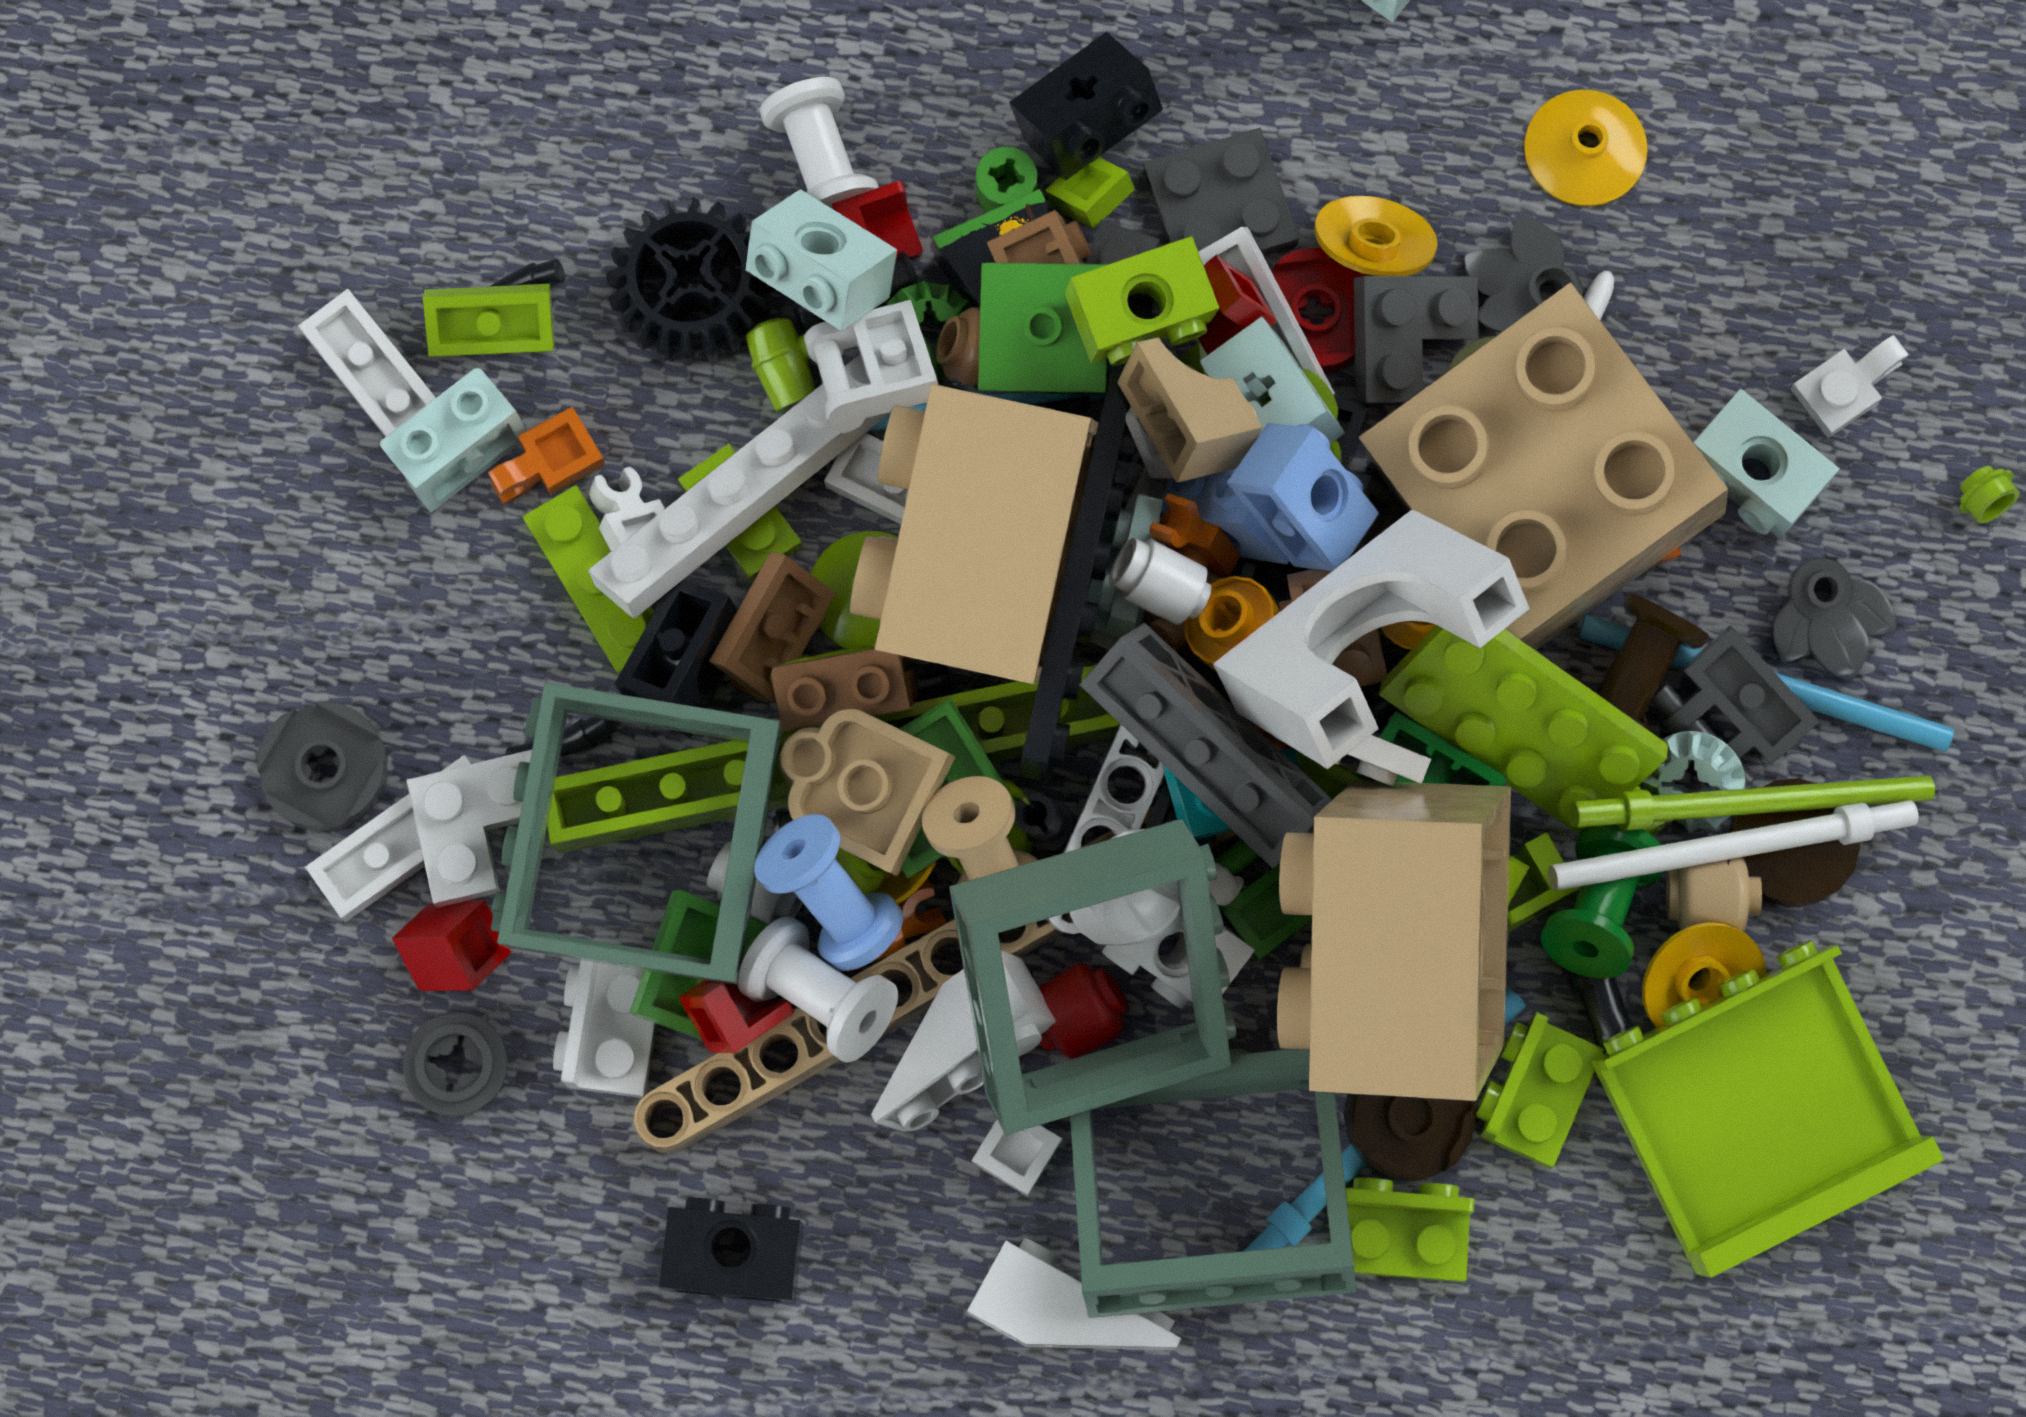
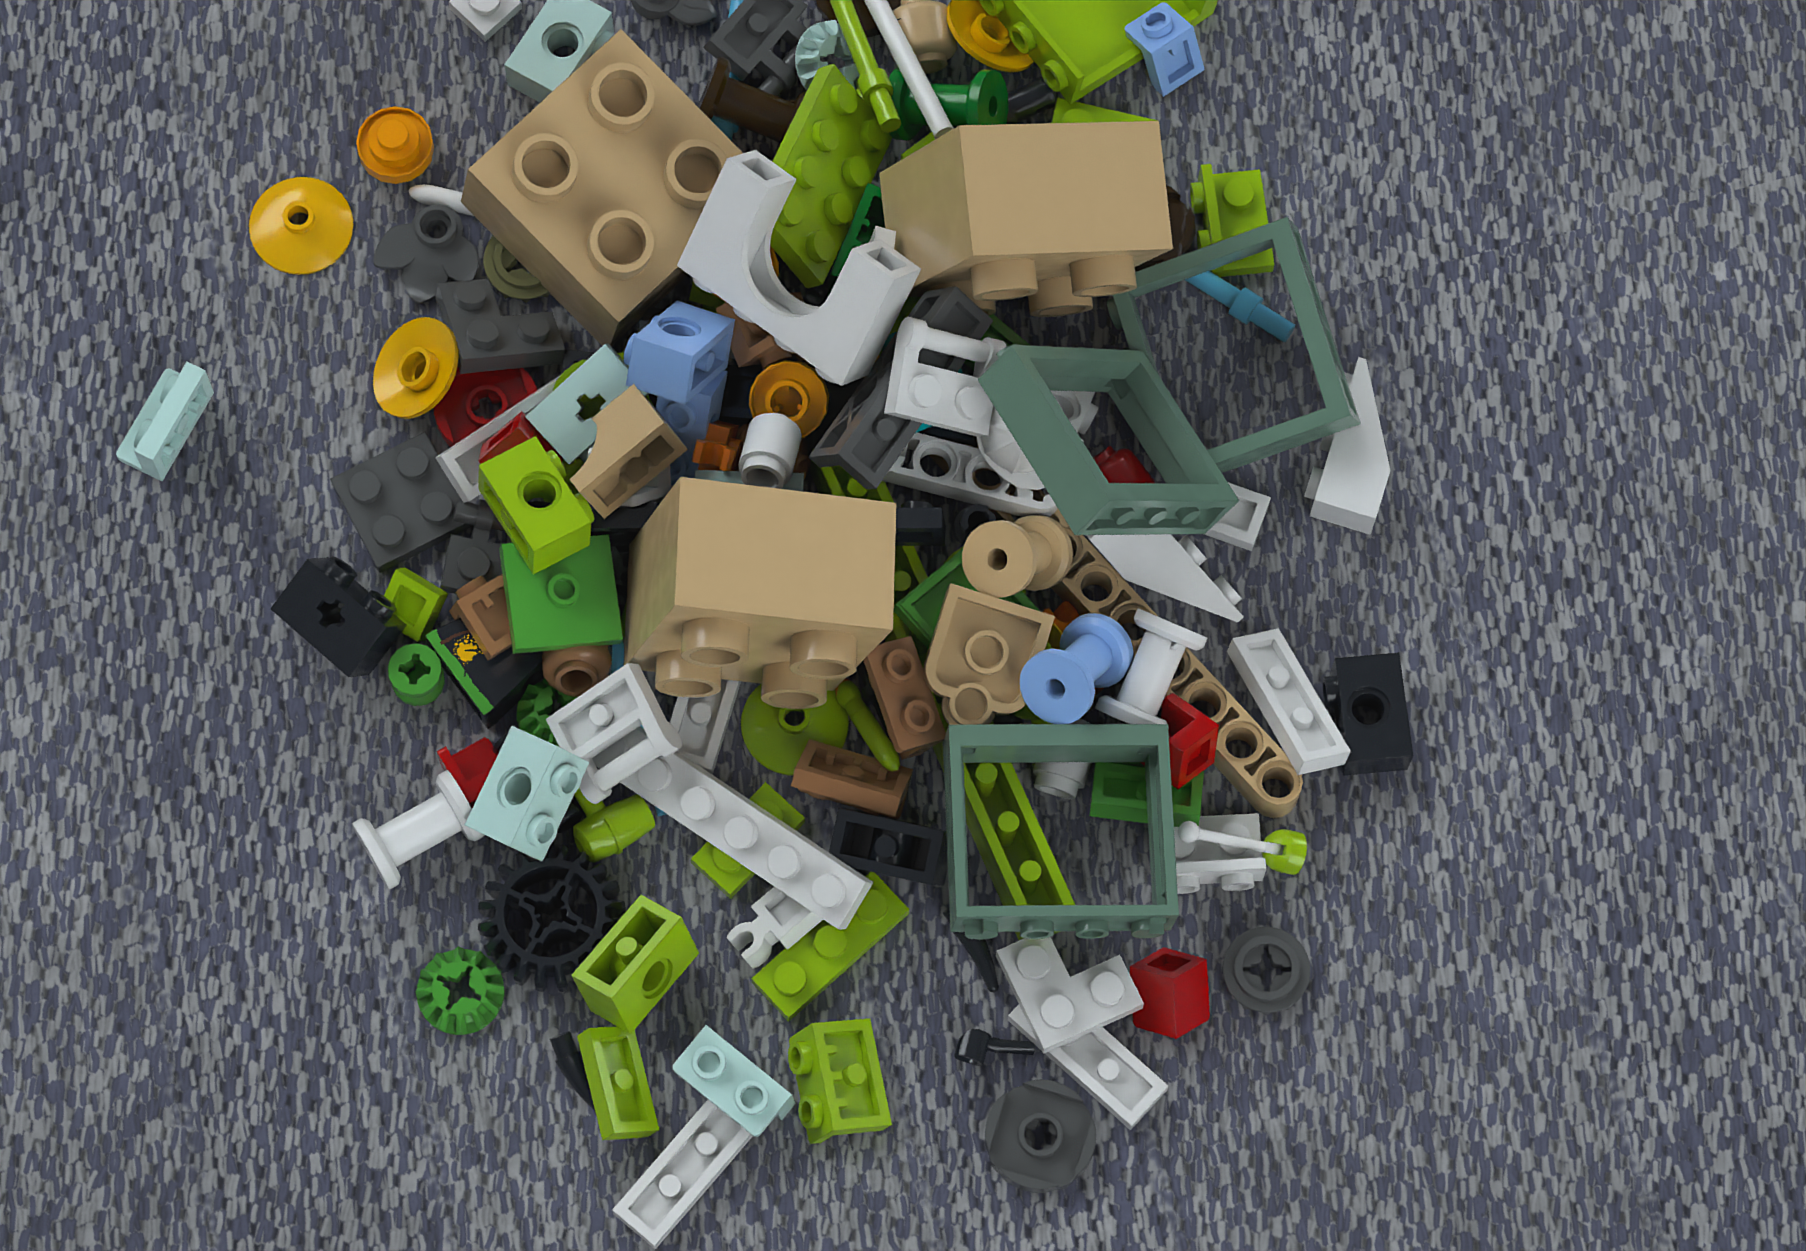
camera: 105 degrees left, 5 degrees down
(437, 558) = (838, 1079): none -> lime bracket
(447, 718) = (975, 1043): none -> black hand
(554, 453) = (728, 1002): orange plate -> none
(591, 1110) = (1282, 849): none -> hinge
(609, 352) = (635, 964): none -> lime brick
(664, 171) = (467, 1014): none -> bright green gear
(763, 1155) = (1288, 701): none -> white plate
(1182, 775) = (938, 394): none -> white plate
(1648, 1193) = (1167, 47): none -> light blue bracket
(1665, 260) = (395, 145): none -> light orange plate

